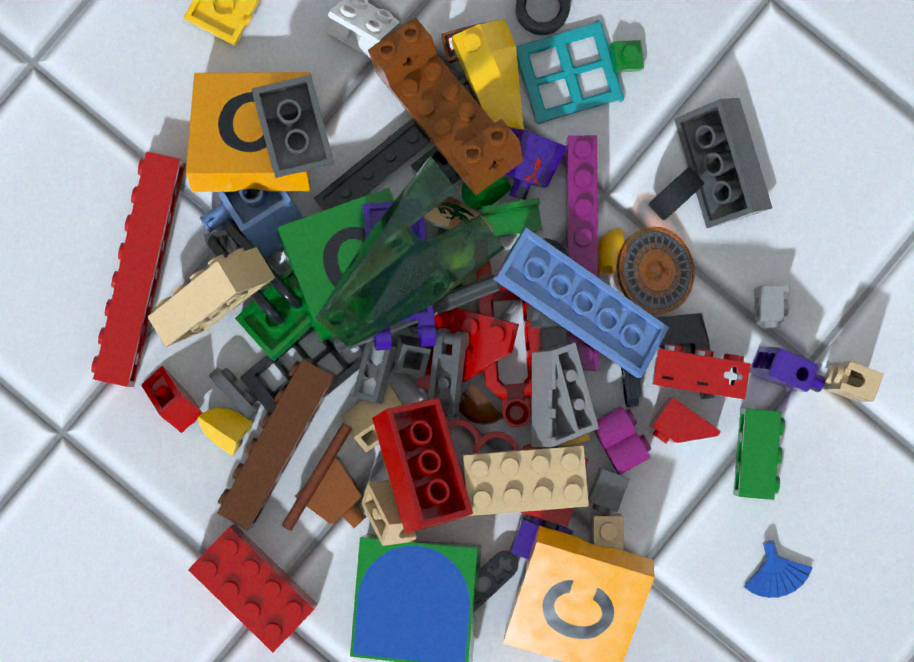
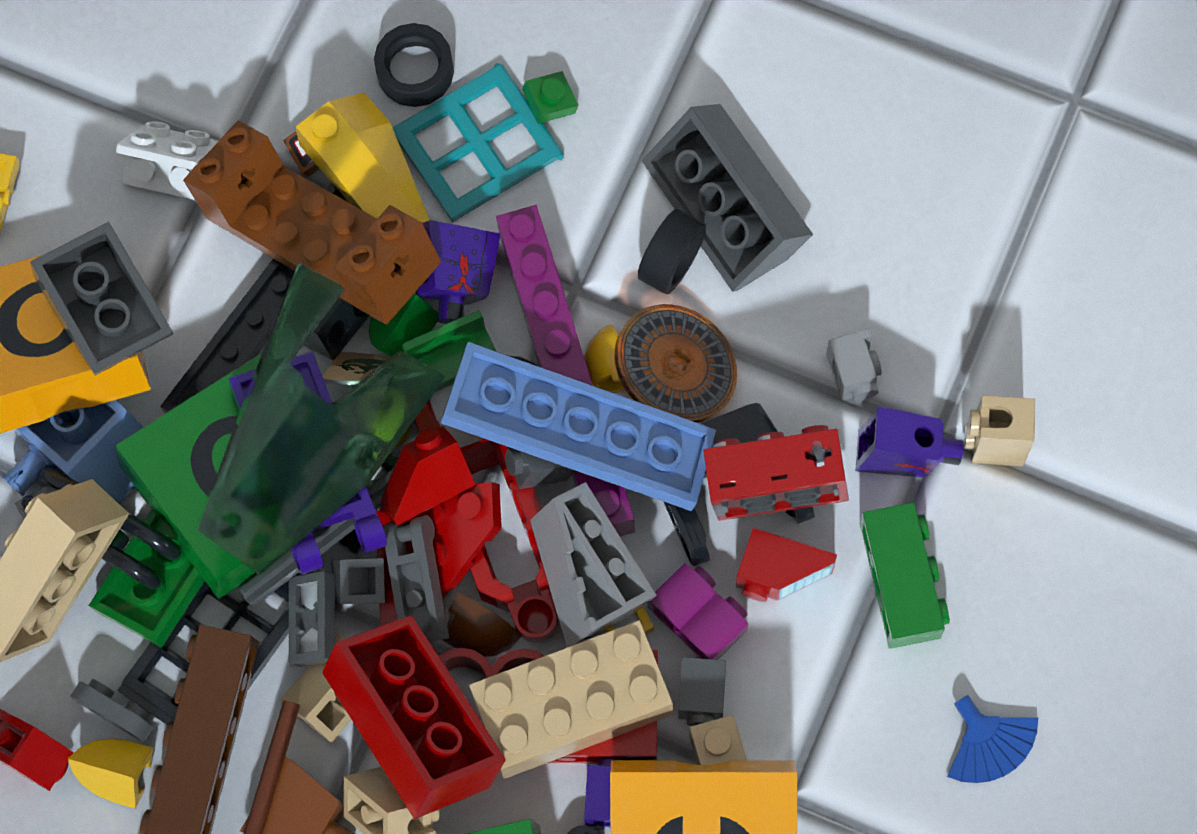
camera: 15 degrees left, 15 degrees down
(472, 306) = (426, 475): none -> red slope

